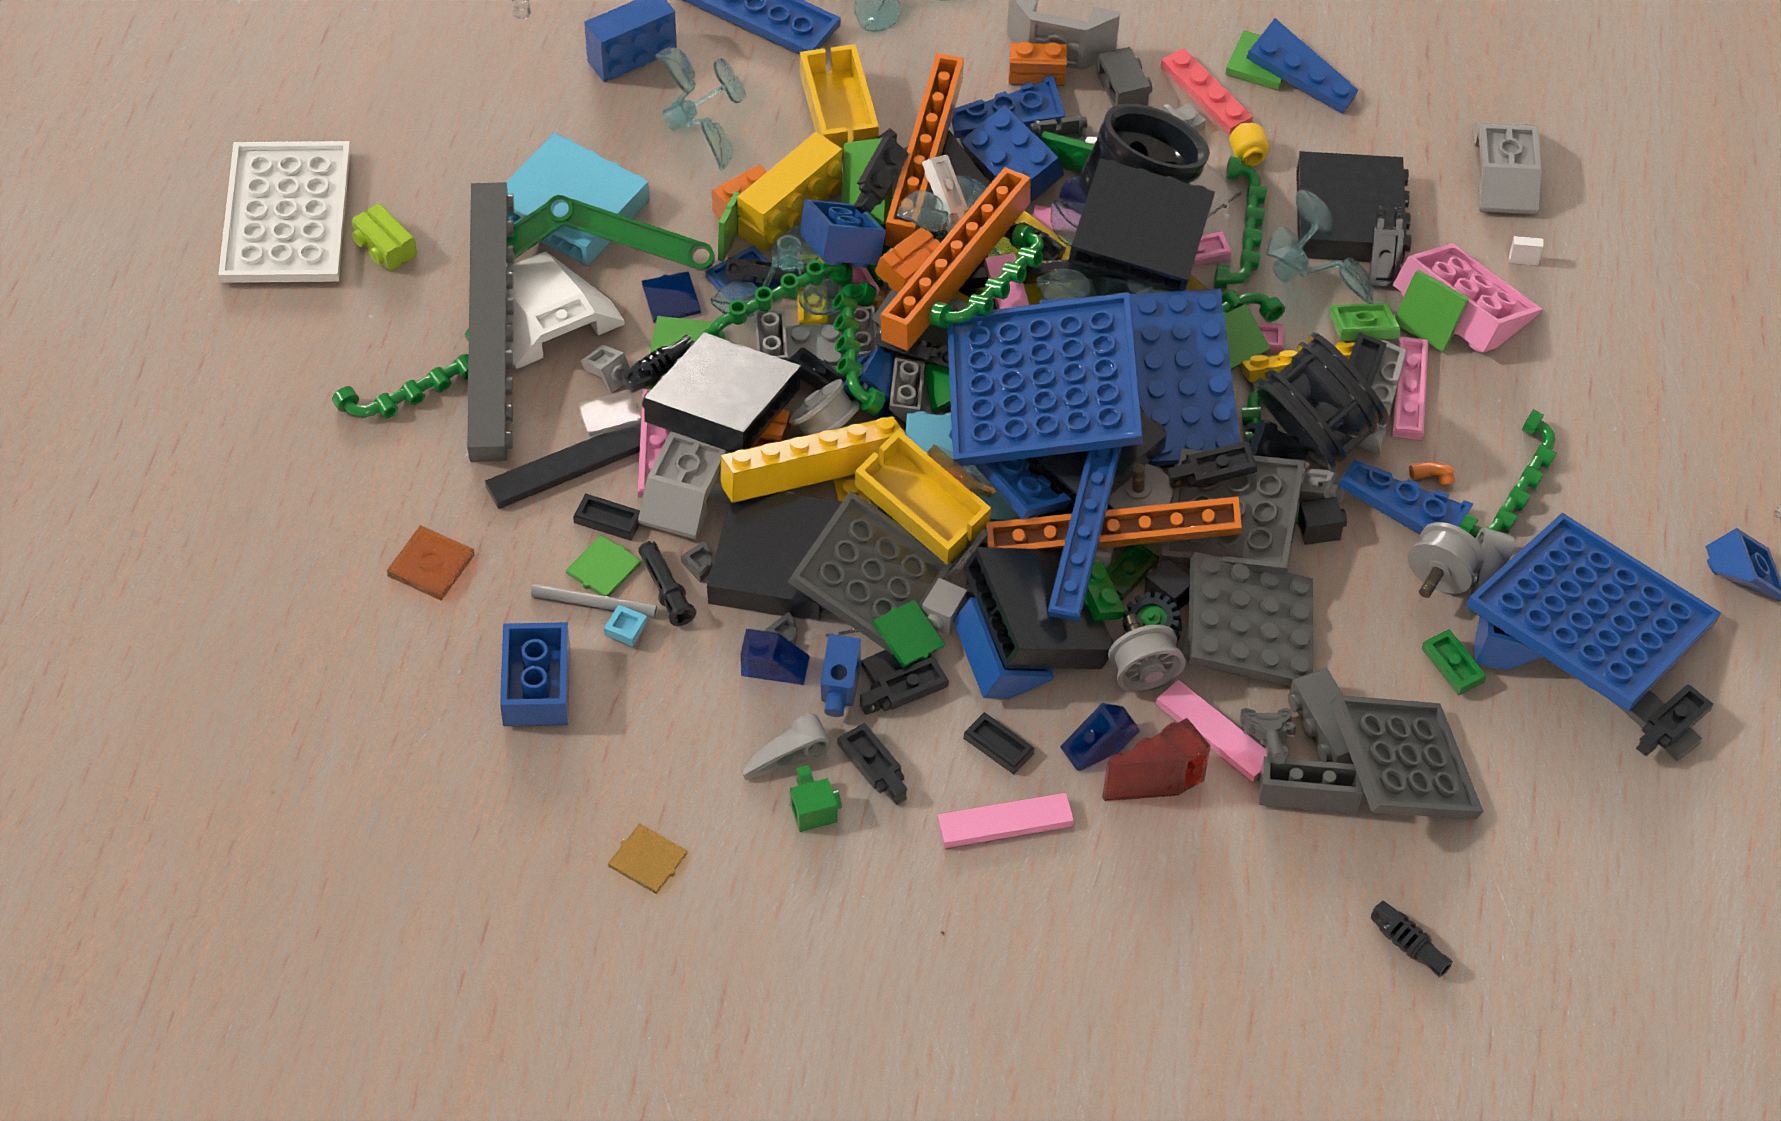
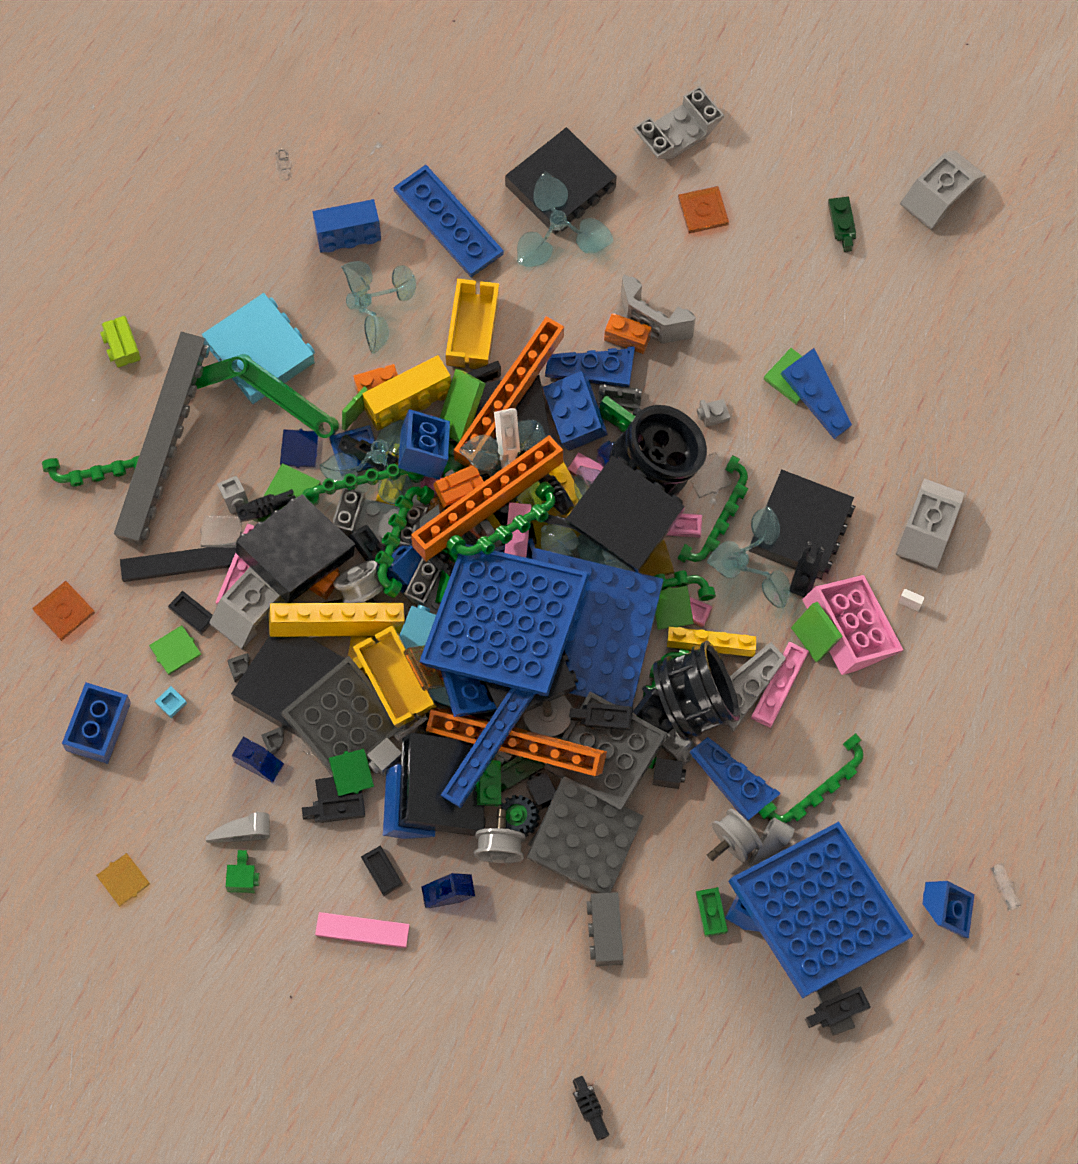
camera: 20 degrees right, 15 degrees up
(285, 212) = (63, 298): white plate -> none
(550, 303) = (213, 433): white wedge -> none
(591, 599) = (158, 674): light grey bar -> none
(670, 592) = (209, 687): black pin -> none
(840, 673) = (297, 781): blue torso -> none
(874, 762) = (293, 858): black hinge -> none
(880, 174) = (464, 409): black hinge -> none
(1123, 77) = (684, 365): dark grey brick -> none
(1159, 765) = (476, 929): clear red slope -> none
(1205, 90) = (742, 391): coral plate -> none
(1219, 732) = (529, 909): bright pink tile -> none
(1249, 143) = (751, 448): yellow head -> none
(1270, 730) = (561, 926): dark grey piece -> none
(1310, 785) = (570, 975): dark grey brick -> none
(1367, 356) = (749, 660): black tile -> none
(1369, 319) = (768, 623): bright green tile -> none
(1406, 757) = (641, 978): dark grey plate -> none
(1432, 469) = (767, 757): orange arm -> none

